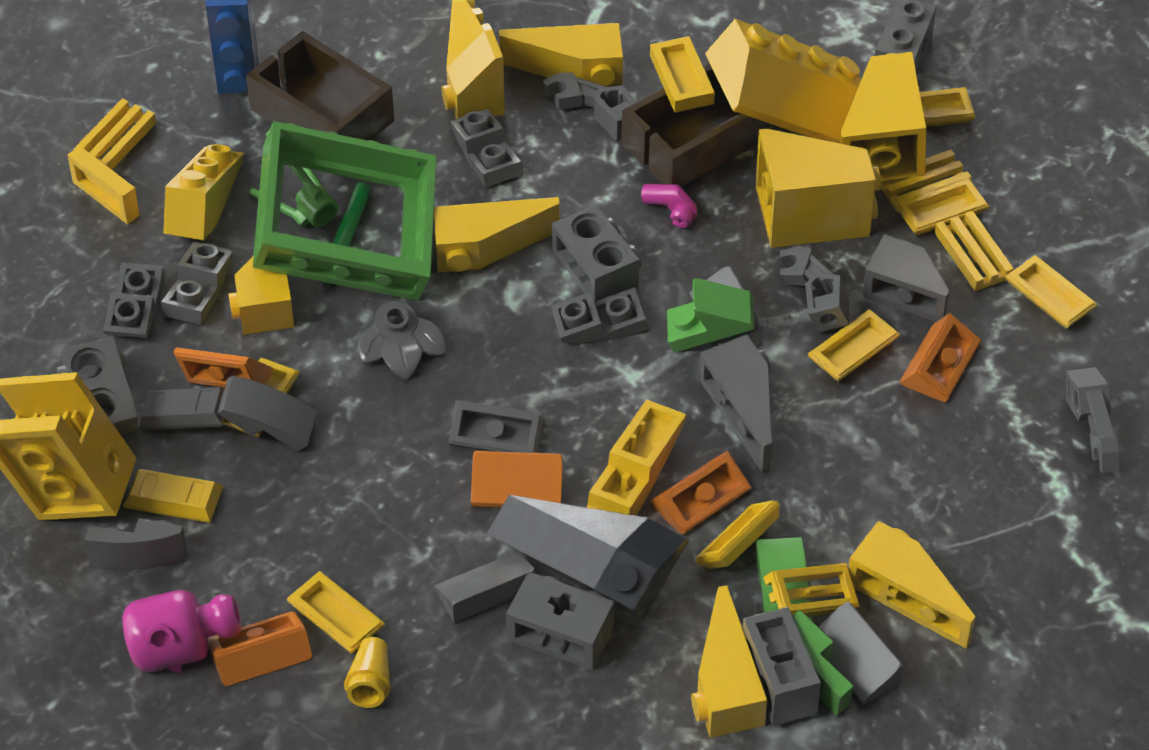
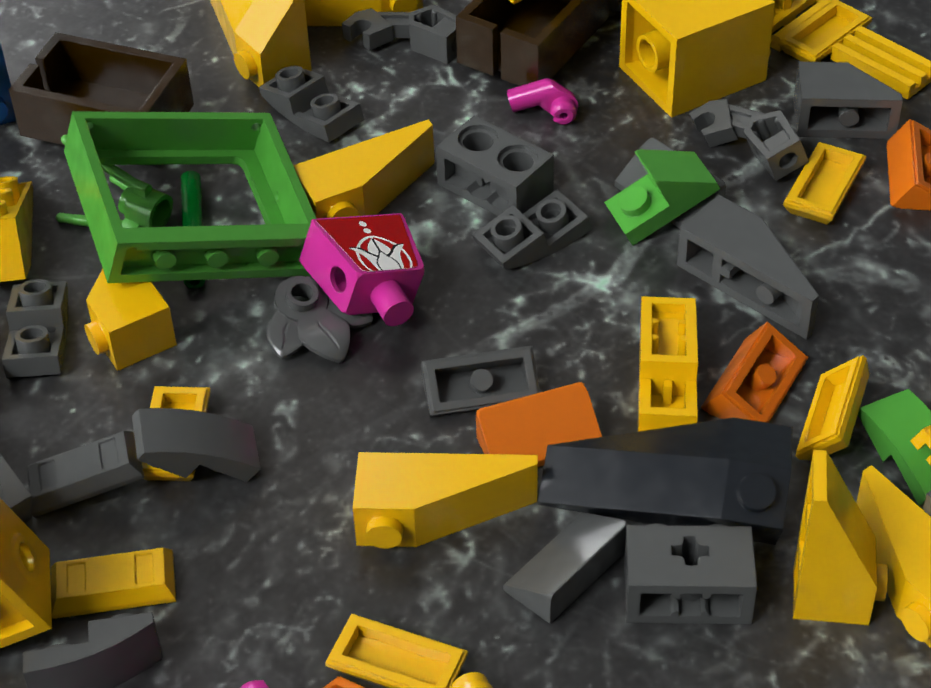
camera: 20 degrees left, 5 degrees down
(216, 368) = (109, 410): orange slope -> none
(414, 505) = (433, 495): none -> yellow slope
(452, 308) = (365, 264): none -> dark pink torso
(657, 636) = (835, 553): none -> yellow slope

